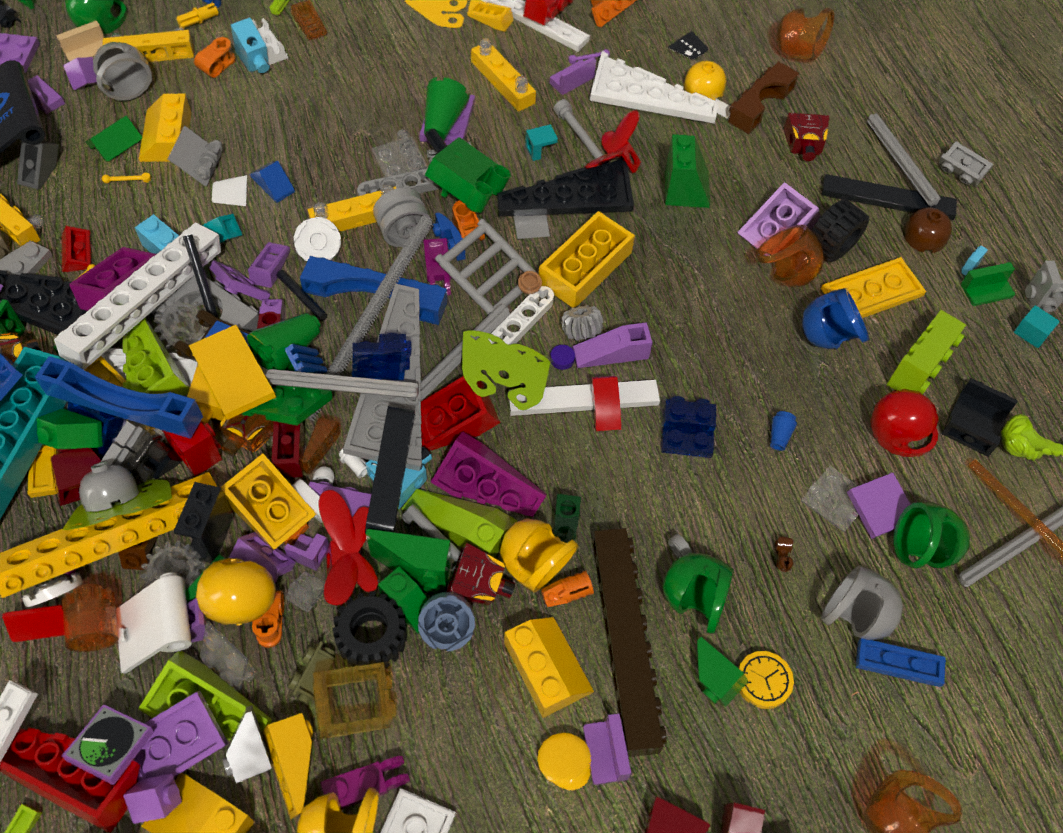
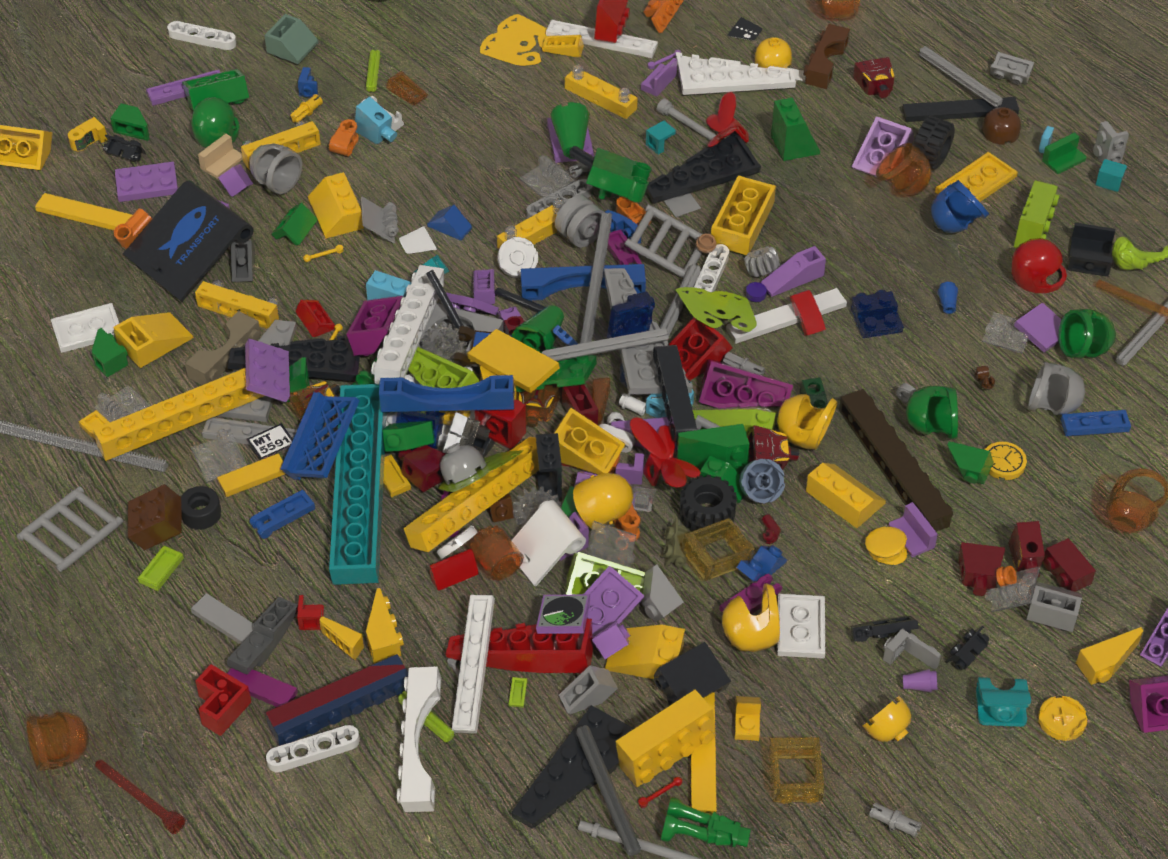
camera: 15 degrees left, 10 degrees down
(290, 751) = (696, 597): yellow slope -> none
(400, 738) = (766, 561): none -> blue slope
(436, 690) = (773, 529): none -> dark red arm
(504, 448) = (736, 361): none -> light grey axle
(567, 589) = (838, 442): orange hinge -> none

